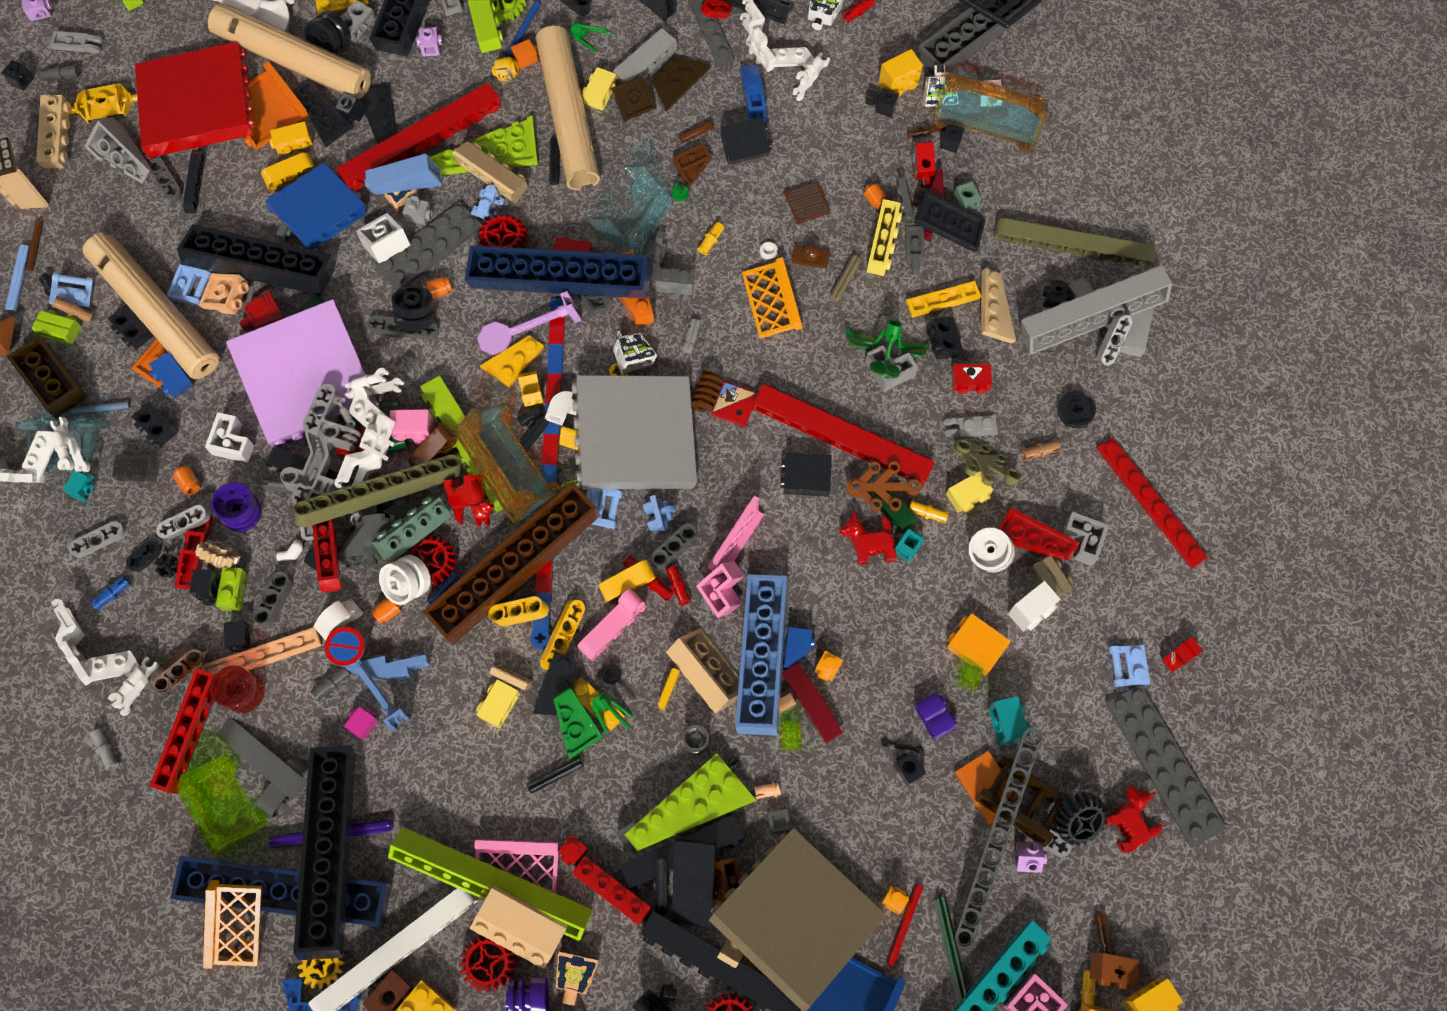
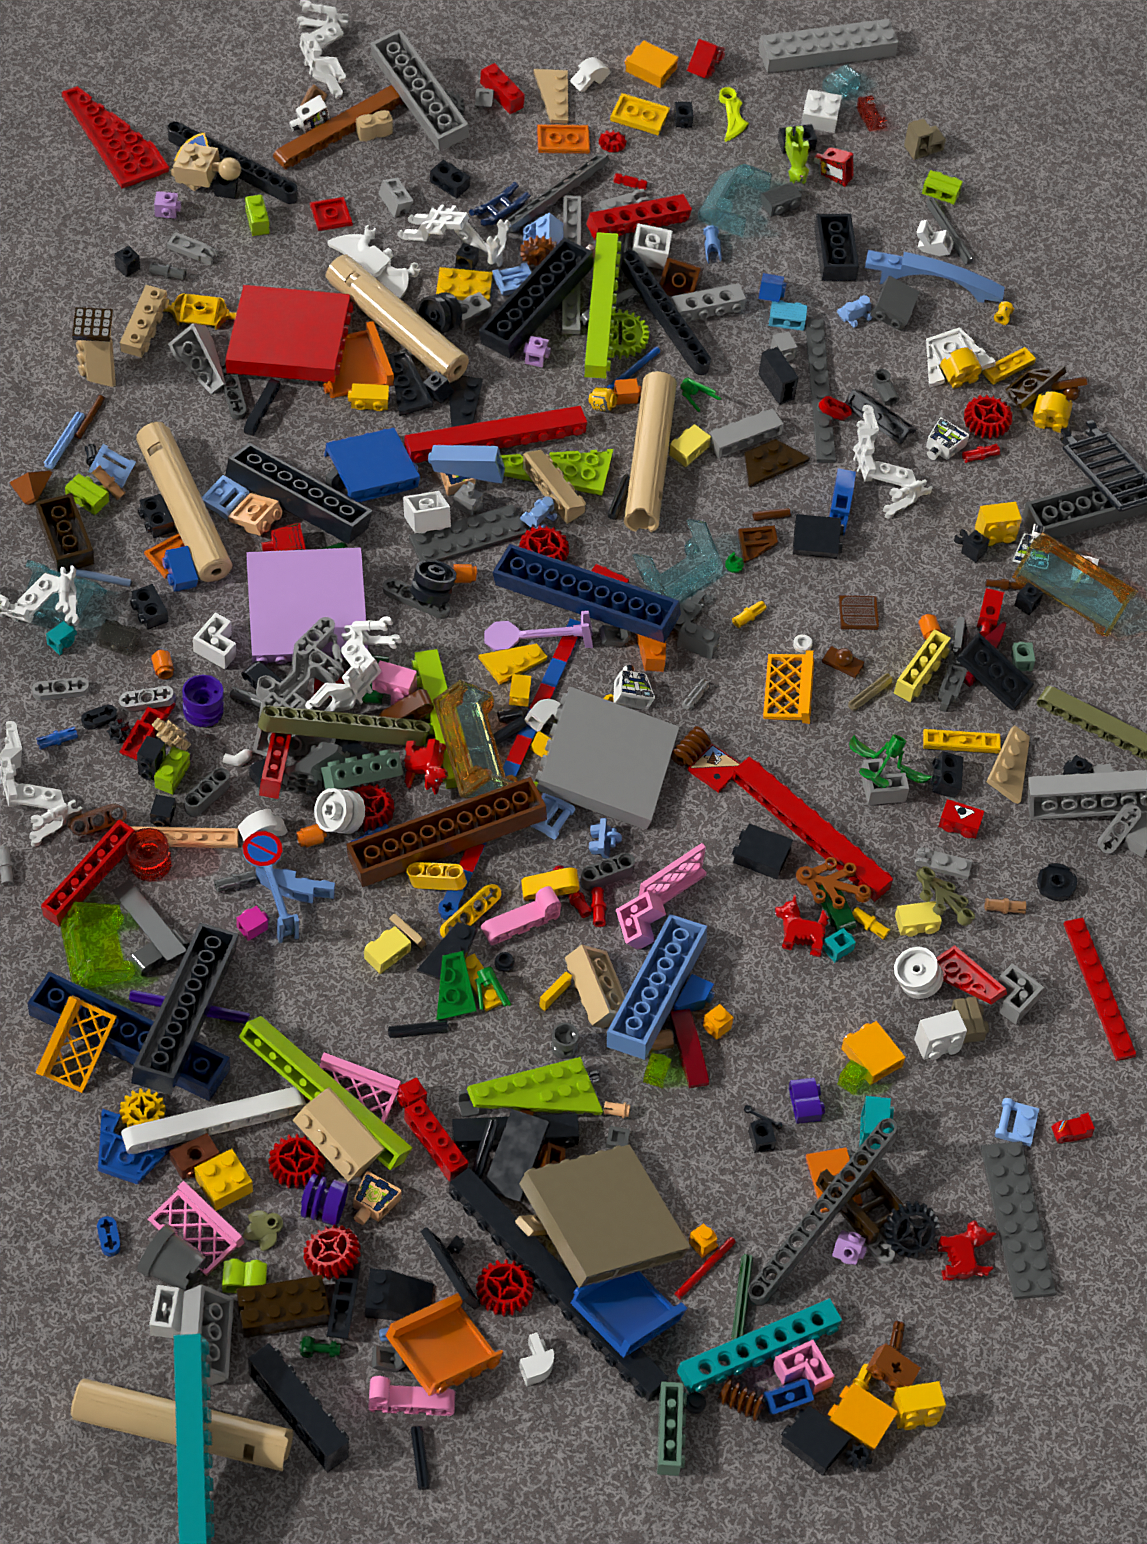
camera: 15 degrees right, 15 degrees down
(287, 171) = (354, 424): yellow beam -> none
(633, 98) = (720, 463): dark brown tile -> none

